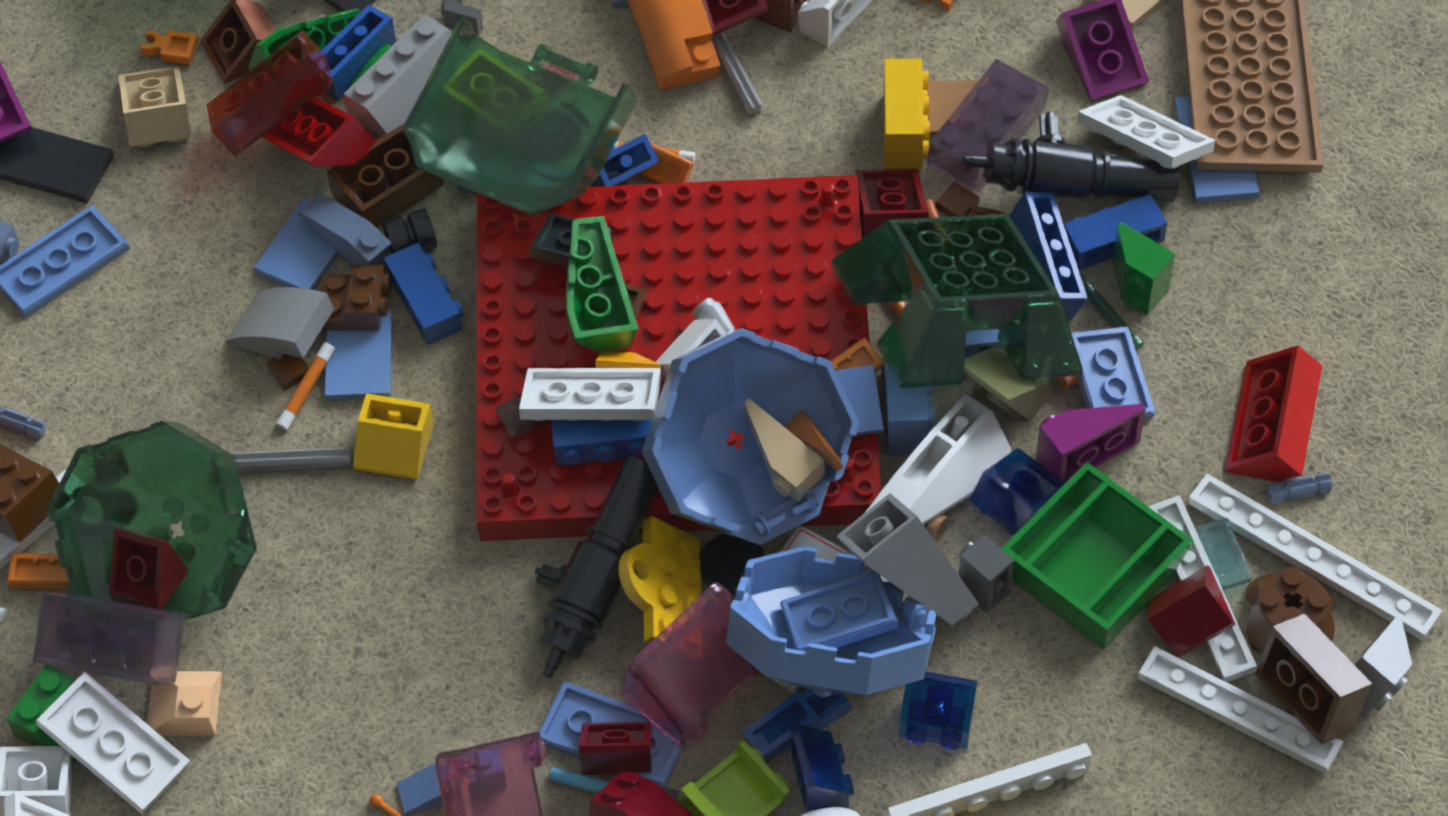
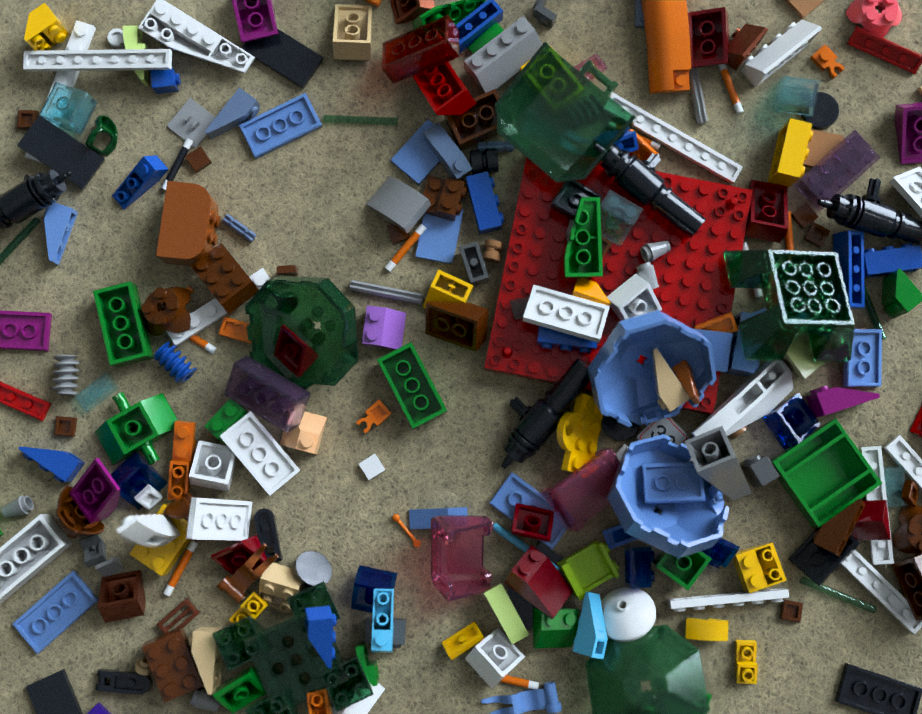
camera: 10 degrees right, 25 degrees up
(192, 224) = (360, 120): none -> clear green bar
(292, 511) = (383, 328): none -> medium lavender slope
(305, 645) = (376, 414): none -> orange plate
(316, 730) = (372, 466): none -> white tile
(360, 582) = (412, 385): none -> green brick
(415, 469) = (457, 323): none -> reddish brown slope
(425, 378) = (473, 263): none -> dark grey brick
(445, 208) = (499, 145): none -> sand blue axle
(453, 359) = (492, 251): none -> medium nougat wheel
(645, 248) = (618, 217): none -> clear light blue slope
(685, 198) = (649, 188): none -> black piece
(718, 284) = (654, 250): none -> light grey cone
(729, 144) = (681, 142): none -> white plate
(787, 54) = (730, 88): none -> orange bar
(891, 742) = (683, 569): none -> green slope
(894, 38) = (797, 95): none -> clear light blue slope
(942, 54) = (825, 112): none -> black tile
(1026, 722) = (758, 567): none -> yellow slope
(1107, 787) = (791, 610): none -> reddish brown tile
(1131, 675) = (818, 563): none -> black tile
(1139, 623) = (836, 531): none -> reddish brown slope
(1181, 744) = (839, 595): none -> clear green bar
(1251, 555) = (910, 493): none -> reddish brown tile

